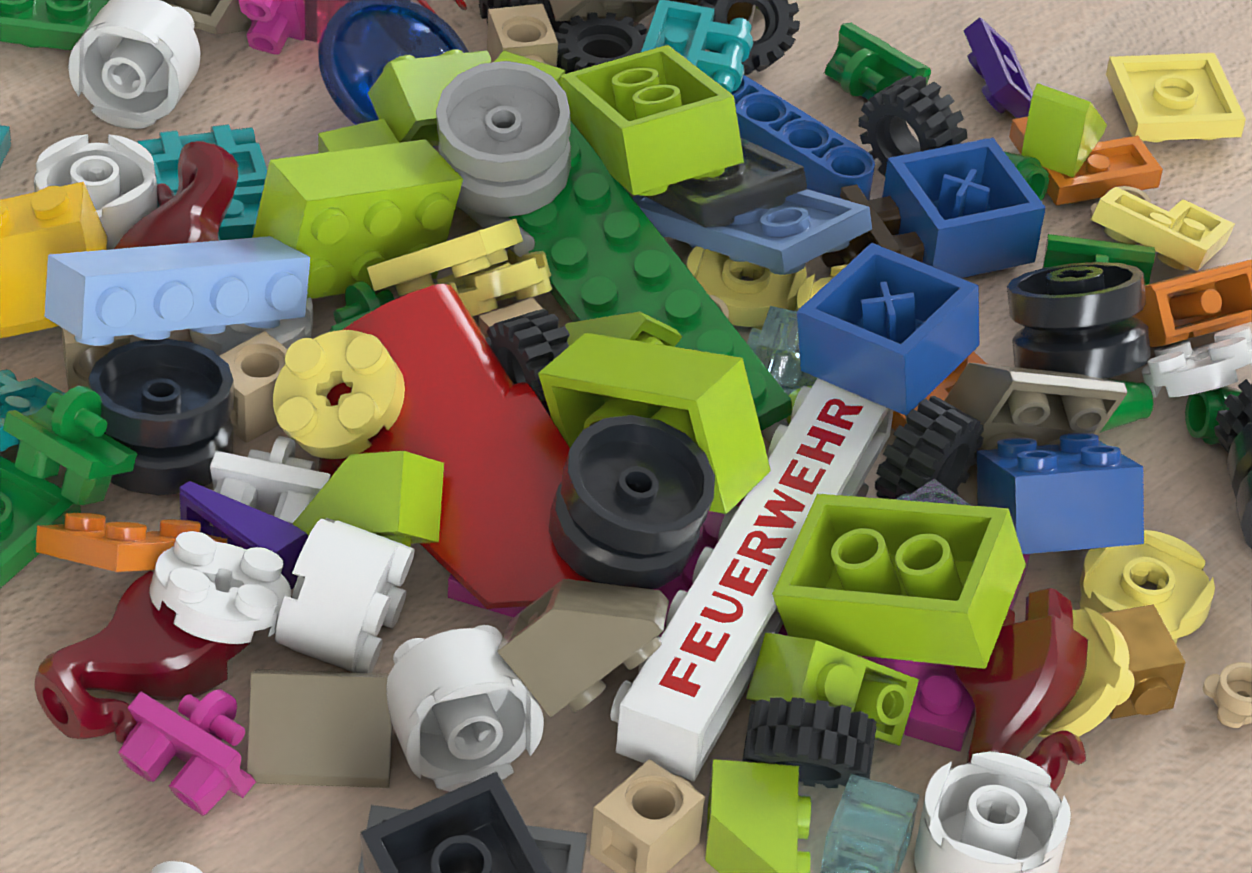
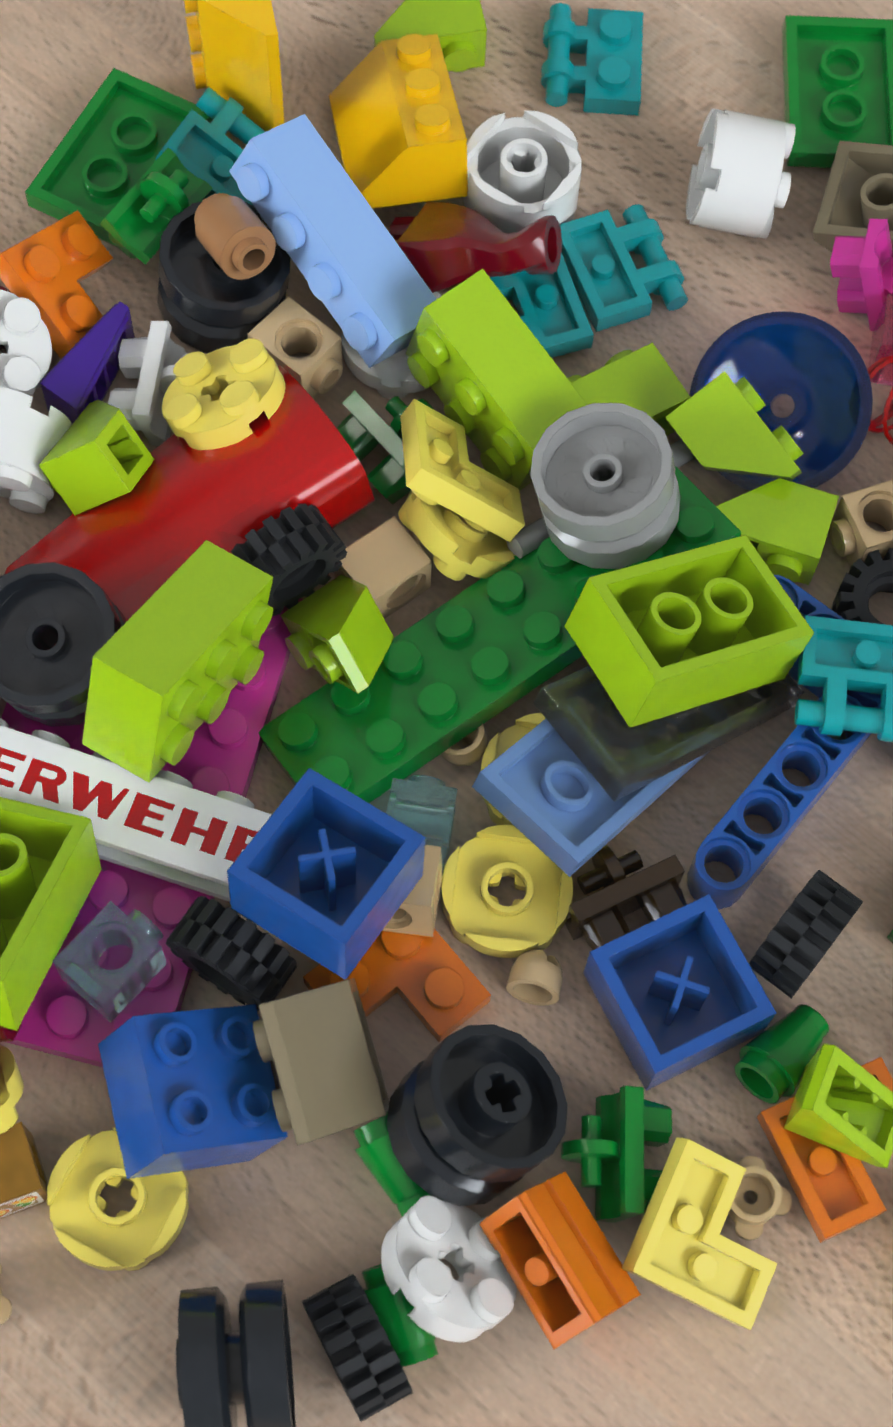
camera: 85 degrees right, 25 degrees up
(158, 351) = (234, 236): none -> medium nougat brick

